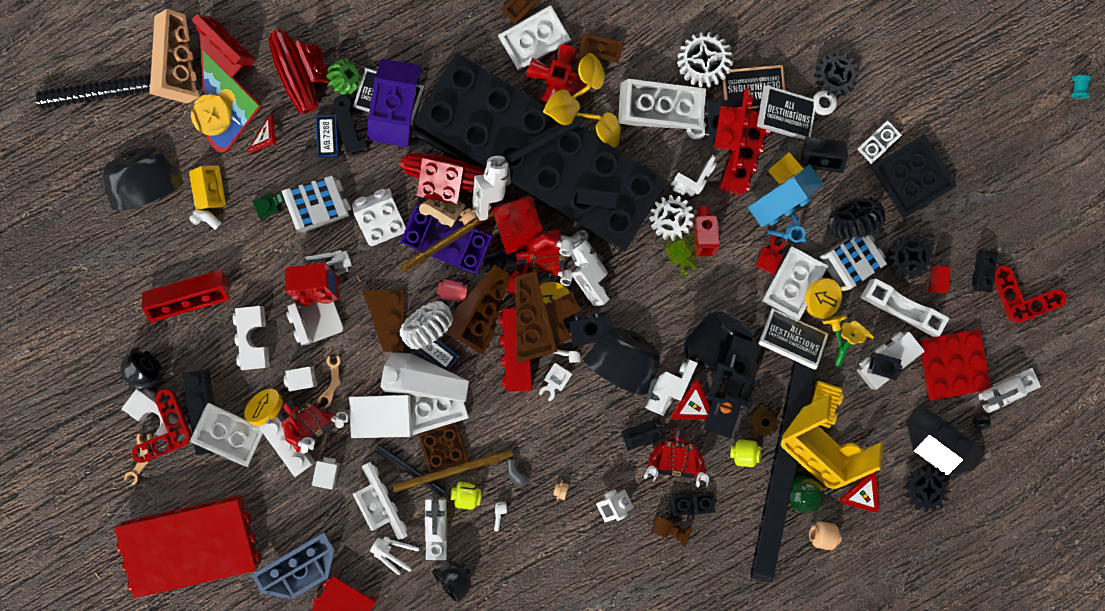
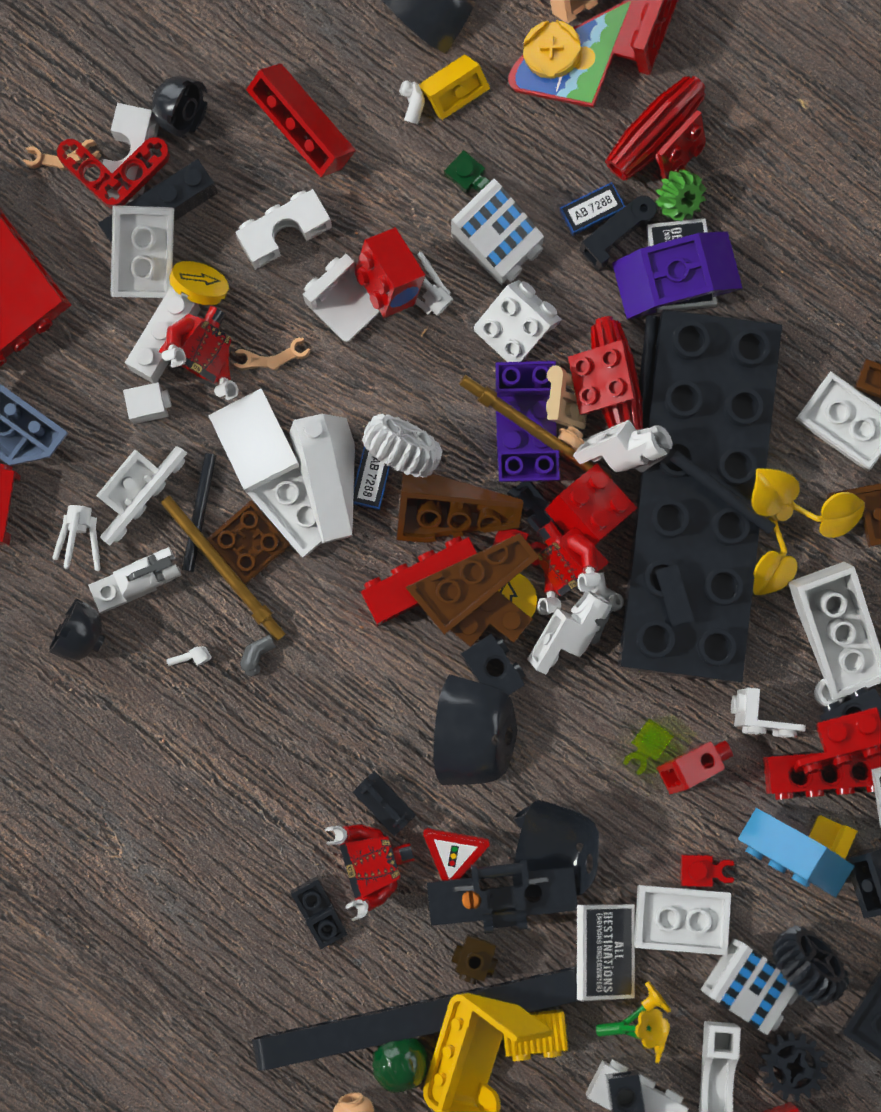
camera: 65 degrees right, 5 degrees down
(265, 135) = (555, 129): piece -> none
(300, 378) = (257, 314): white brick -> none
(388, 315) = (391, 392): reddish brown wing -> none
(452, 290) = (462, 460): coral brick -> none
(466, 495) = (197, 600): neon yellow head -> none
(557, 379) = (407, 652): white plate -> none
(558, 75) = (817, 472): red brick -> none
(561, 490) = (259, 725): light nougat plate -> none
(574, 356) = (447, 663): white hand -> none
(614, 505) = (275, 810): white brick -> none
(665, 527) = (269, 890): reddish brown leg -> none
(668, 386) = (463, 807): white plate -> none
(679, 214) = (687, 702): white gear -> none
(746, 453) = (420, 956): neon yellow head -> none
(793, 232) = (752, 884): dark azure plant -> none
(823, 298) = (680, 968): yellow tile -> none

